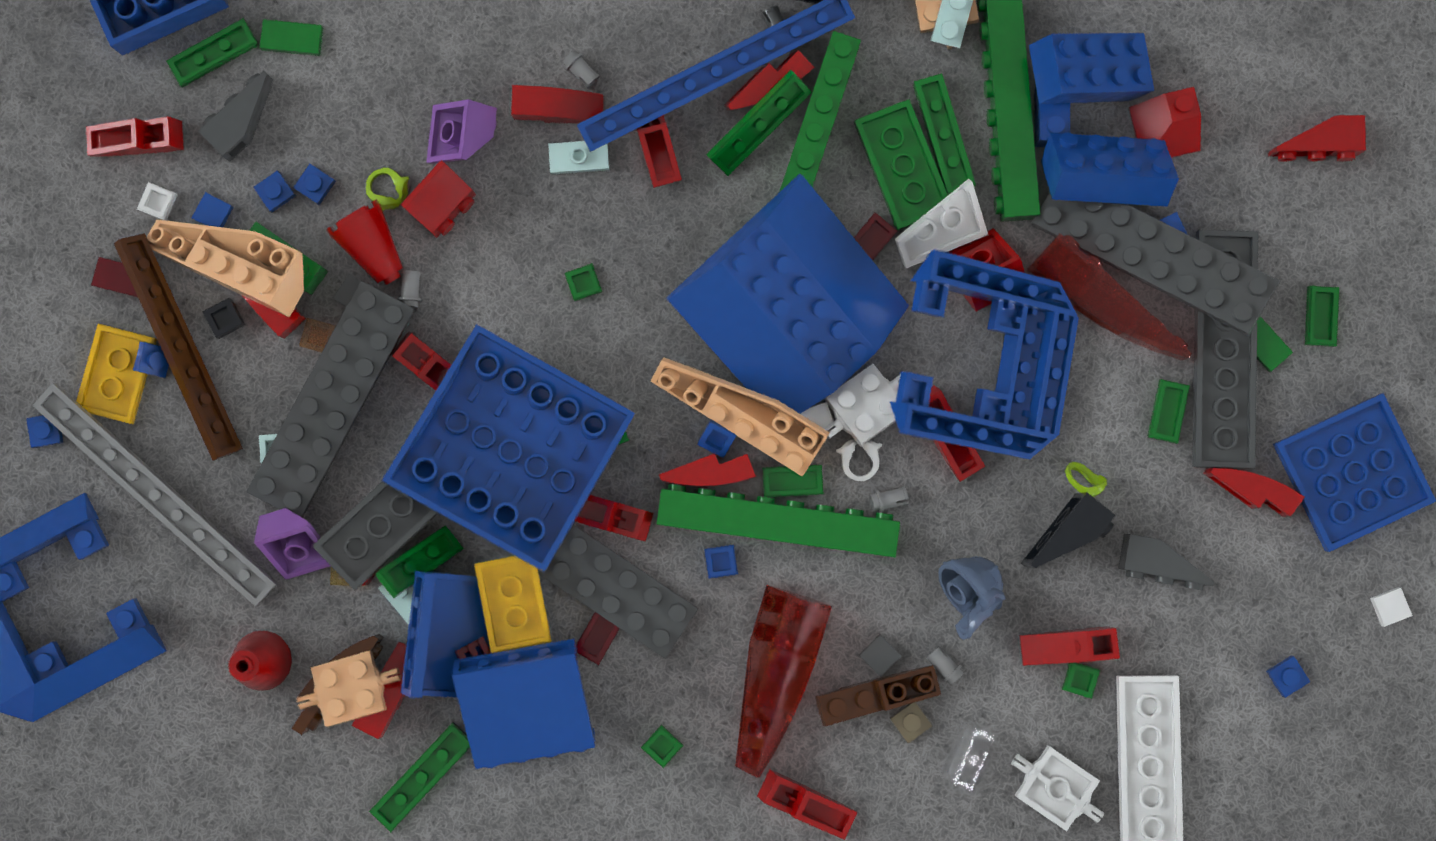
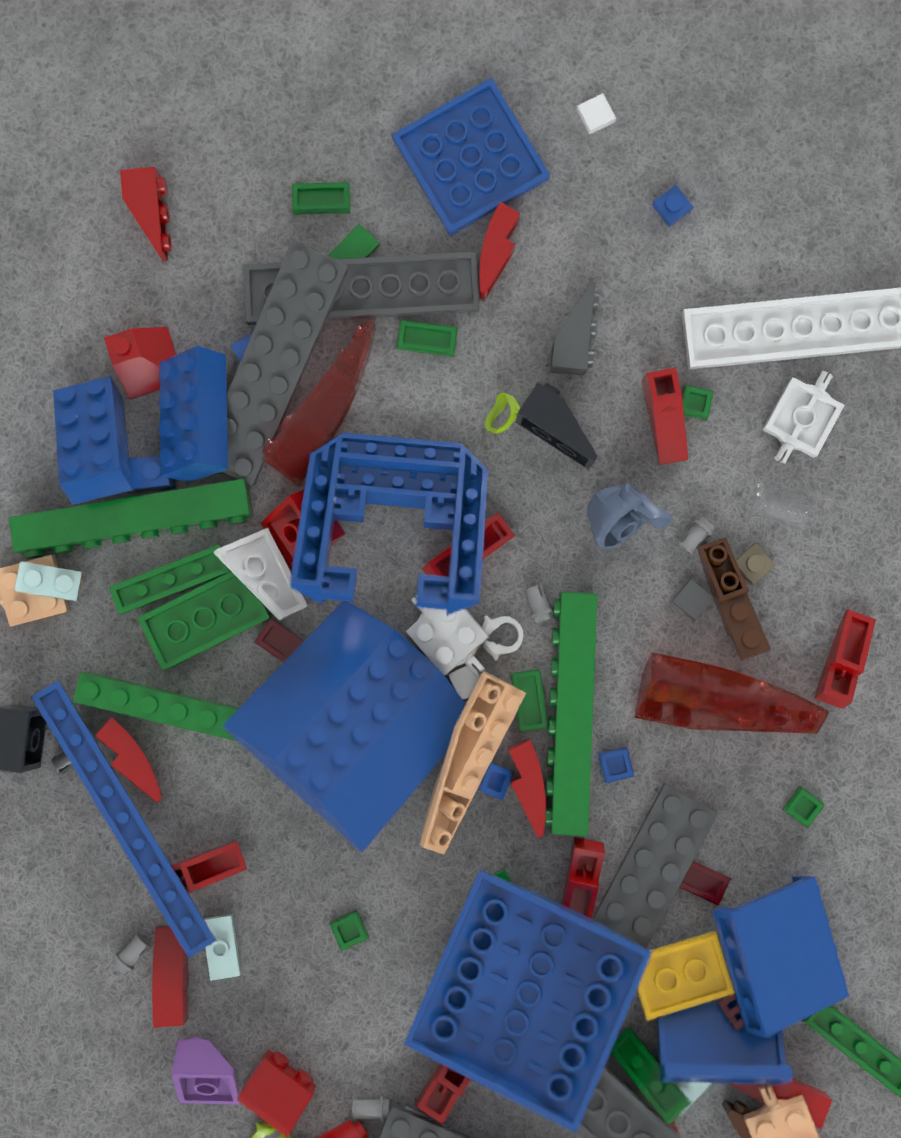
camera: 90 degrees left, 0 degrees up
(759, 123) = (173, 767): green tile -> none

